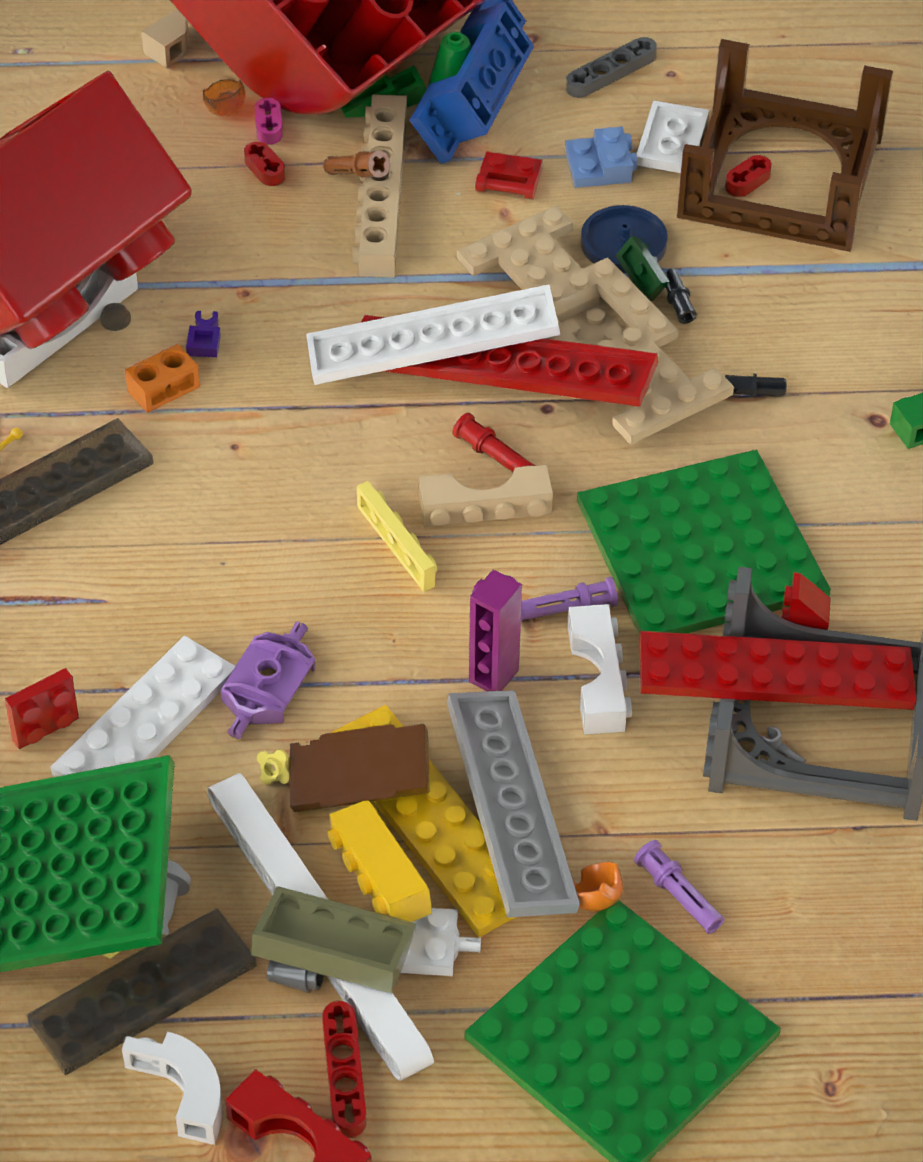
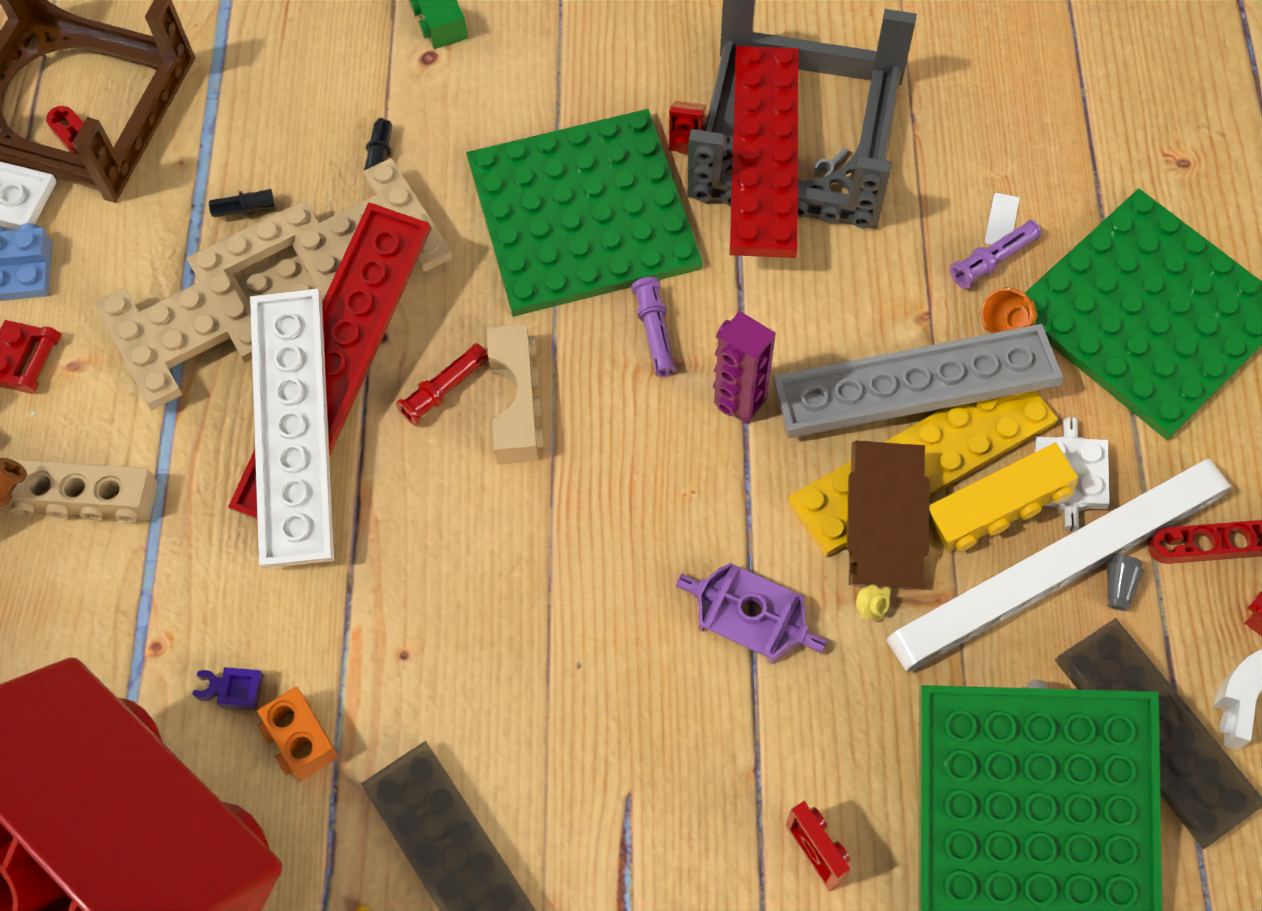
camera: 85 degrees left, 15 degrees up
(150, 711) = (807, 743): white plate -> none
(333, 939) = (1105, 536): olive slope -> none
(395, 535) = (554, 485): light yellow plate -> none
(603, 699) = (785, 298): white arch -> none
(612, 226) = (143, 250): dark blue piece -> none
(642, 268) = (204, 228): dark green plate -> none
(735, 904) = (1001, 217): none -> white sticker

